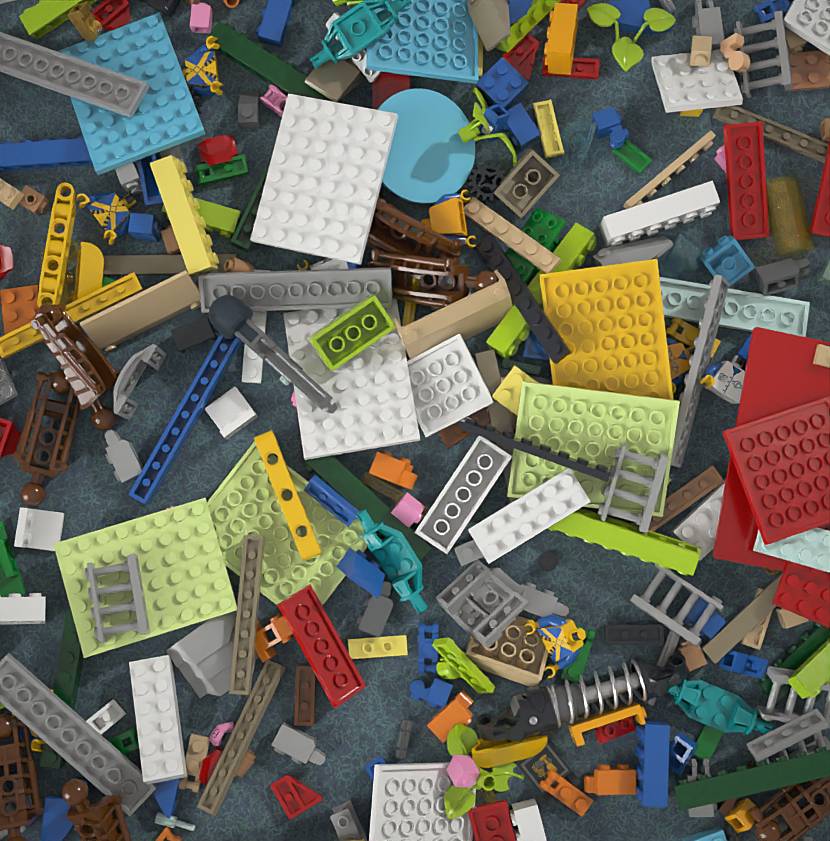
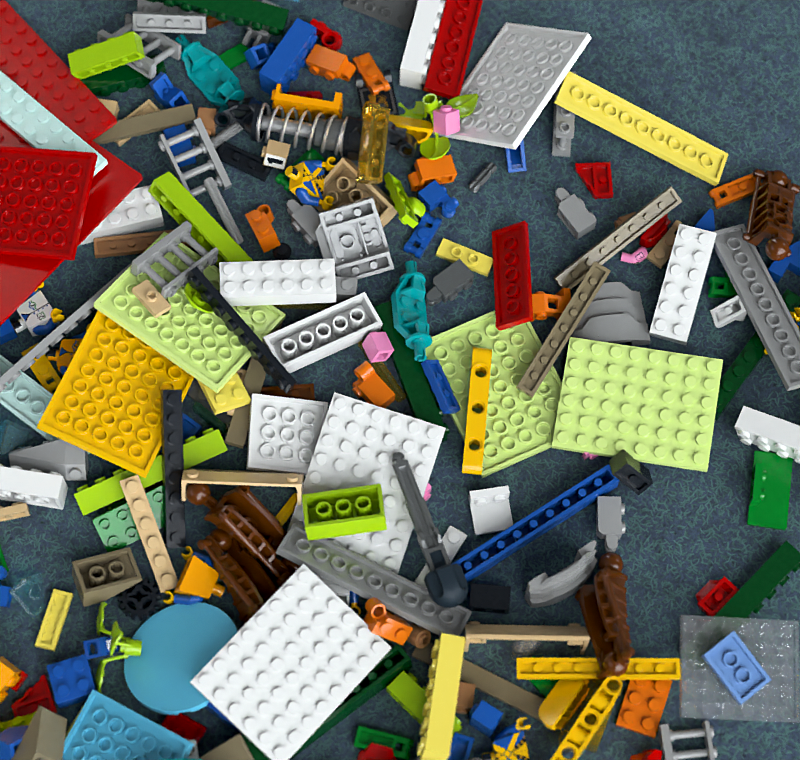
camera: 155 degrees left, 15 degrees down
(33, 492) = (658, 564): reddish brown piece -> none
(38, 529) = (715, 497): white bracket -> none
(122, 508) = (630, 472): none -> black panel
(137, 604) = (655, 377): light grey fence -> none
(172, 822) = (718, 214): light aqua axle -> none
(266, 257) = (386, 623): none -> orange hinge
(304, 696) = (548, 248): reddish brown plate -> none
(362, 571) = (445, 314): blue slope -> none
(517, 702) = (372, 143): none -> clear yellow hinge
(521, 127) = (78, 629): blue brick -> none
(577, 572) = (260, 223): none -> orange hinge
(590, 453) = (196, 300): none -> lime dish
(607, 653) = (275, 154): none -> tan brick
(623, 571) = (223, 210): none -> light grey axle
(632, 435) = (151, 298): none -> tan plate
(641, 815) = (327, 35): none -> red plate

